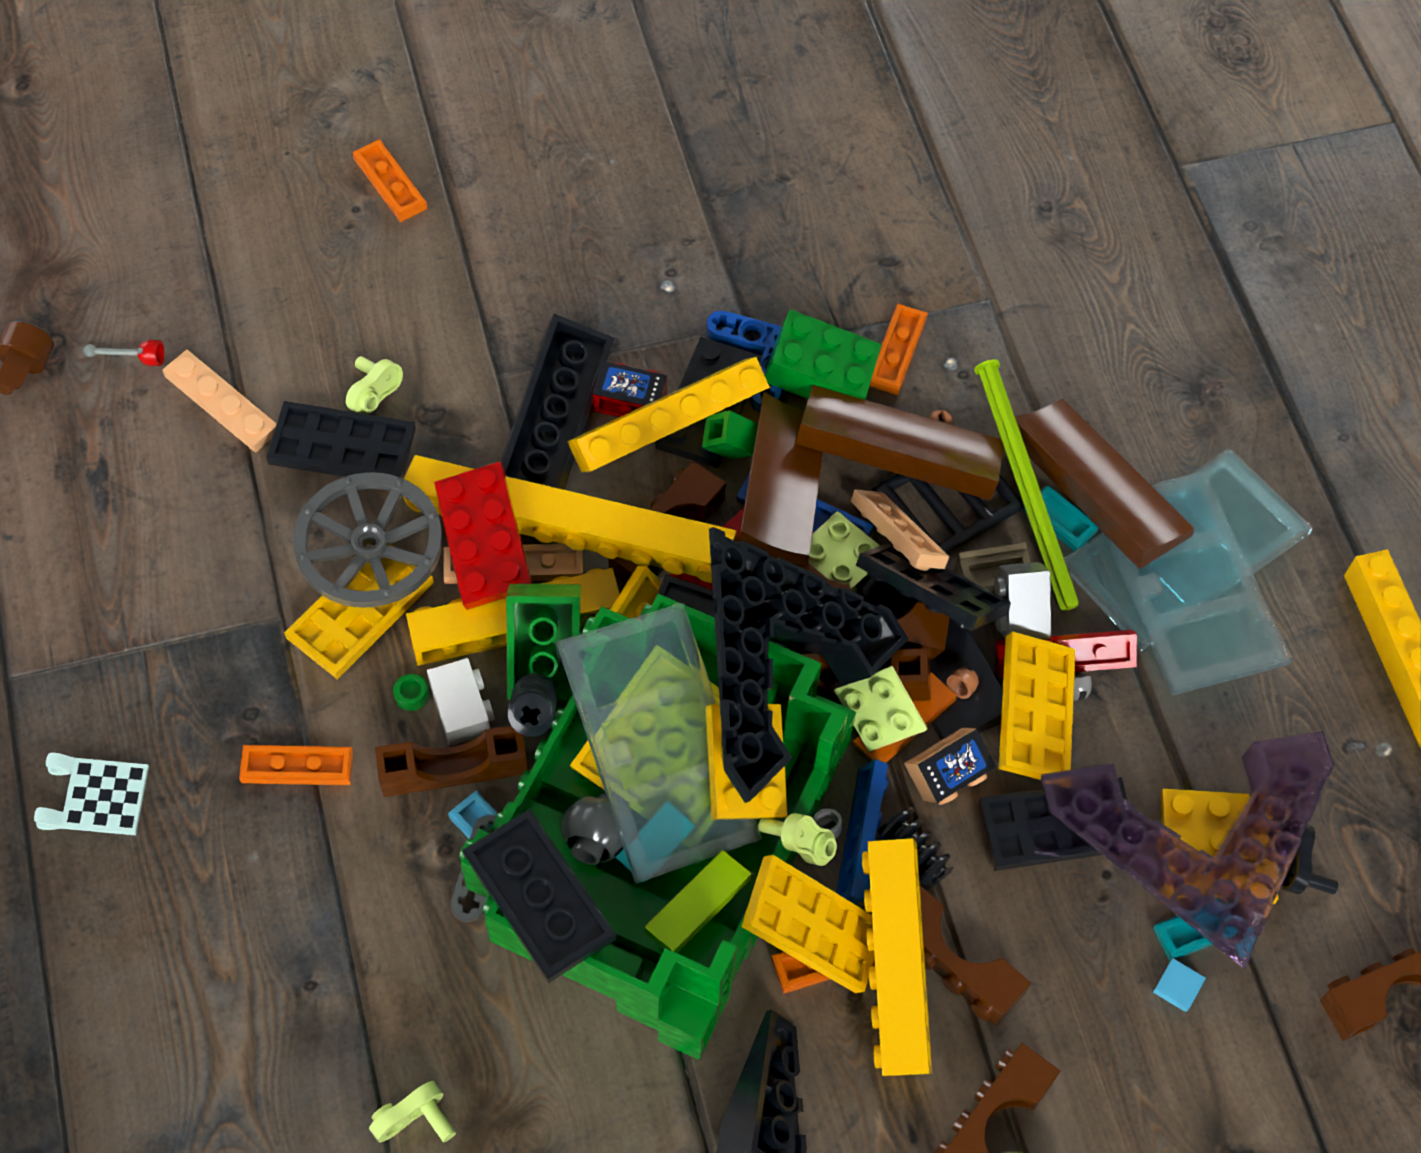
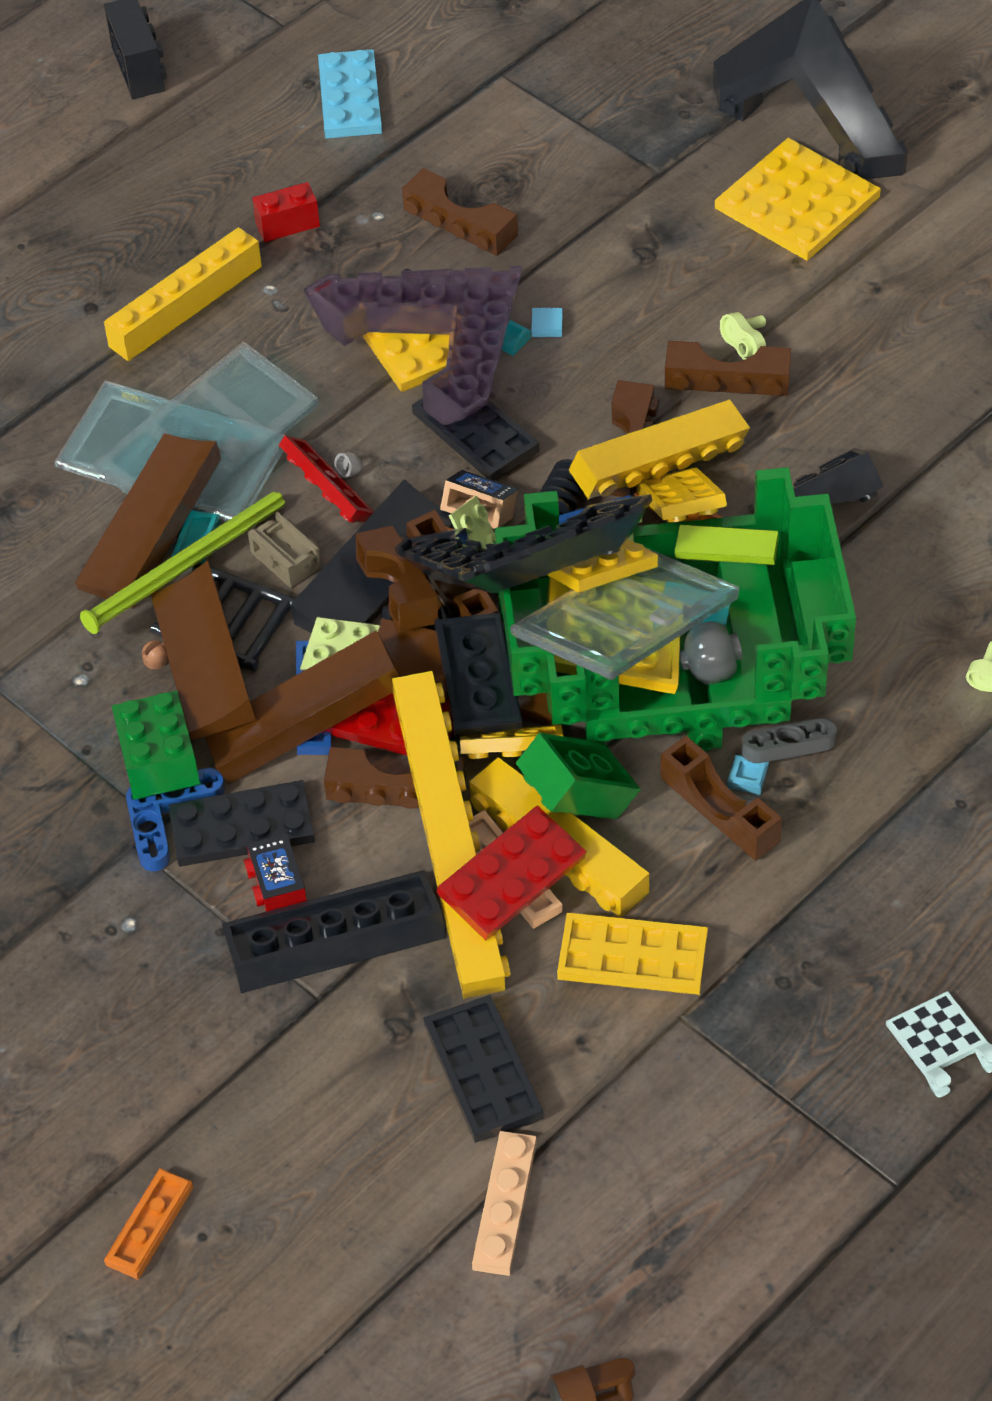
camera: 115 degrees left, 10 degrees down
(149, 352) = (497, 1295): hinge -> none
(296, 765) = (802, 917): orange tile -> none
(368, 534) = (574, 954): dark grey wheel -> none
(379, 382) = (423, 1074): yellowish green piece -> none
(411, 692) = (677, 877): green tile -> none
(459, 701) = (664, 830): white brick -> none
(532, 705) = (643, 745): black piece -> none
(539, 895) = (814, 591): black tile -> none
(668, 414) = (294, 810): yellow brick -> none
(730, 435) = (279, 768): green brick -> none
(898, 349) = (80, 720): orange tile -> none
(900, 530) = (297, 606): light nougat plate -> none
(937, 588) = (341, 550): black plate -> none
(960, 677) = (403, 513): nougat hinge -> none
(1029, 593) = (308, 504): brick -> none
(1036, 706) = (397, 460): yellow plate -> none

